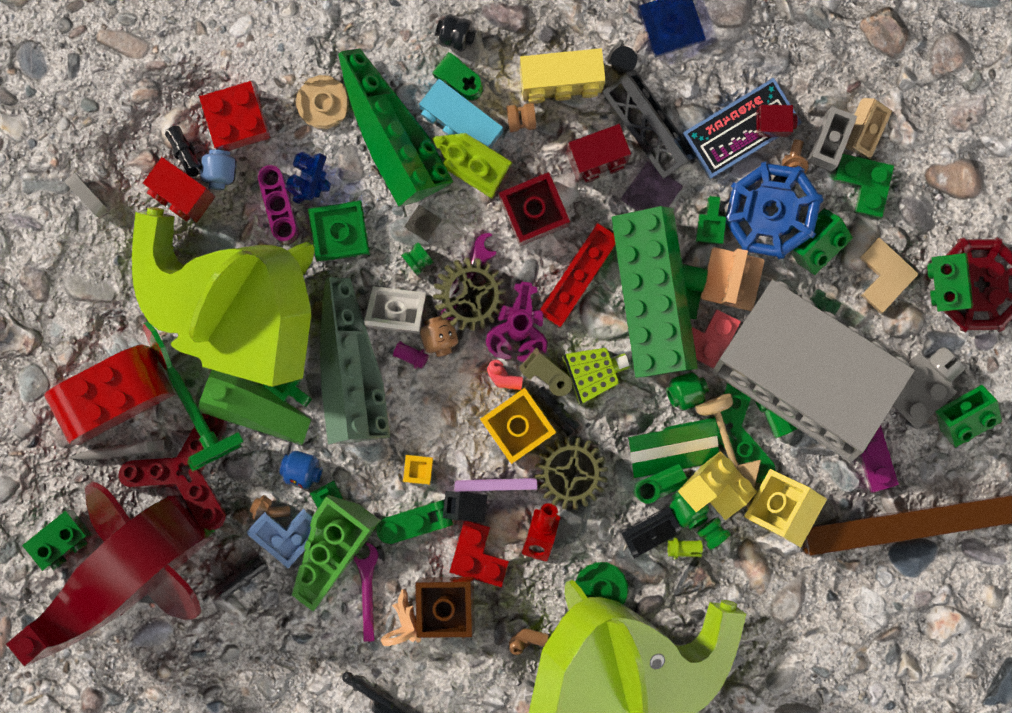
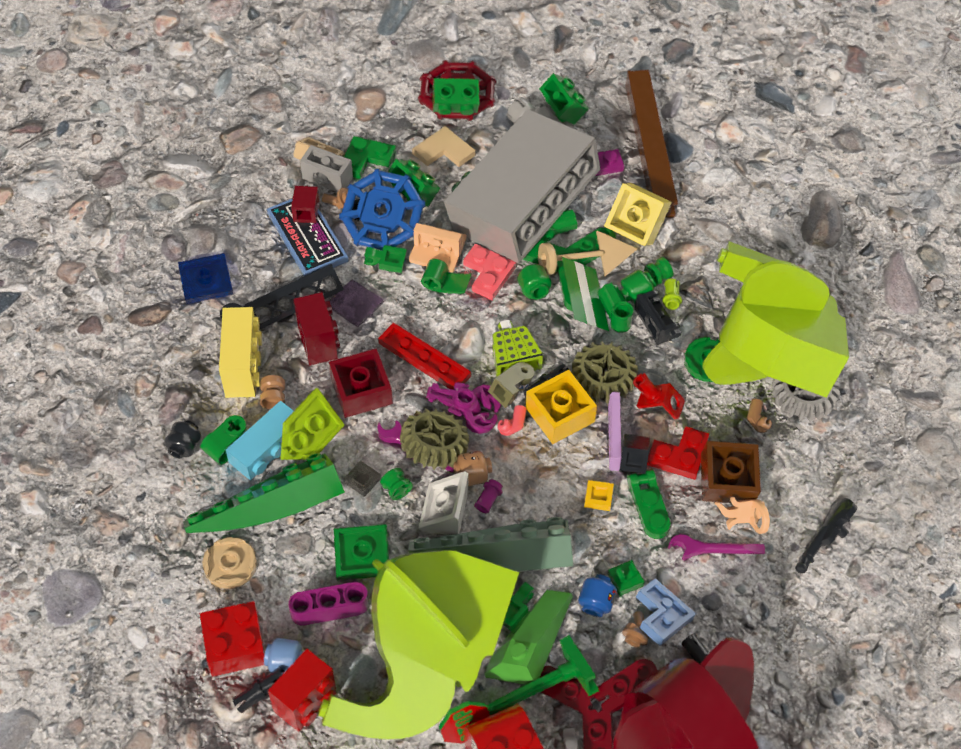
camera: 85 degrees left, 30 degrees down
(311, 180) = (305, 571): clear blue hips -> none
(334, 540) = (672, 567): bright green wedge -> none
(654, 292) = (446, 294): green brick -> none
(719, 485) = (618, 260): light yellow brick -> none

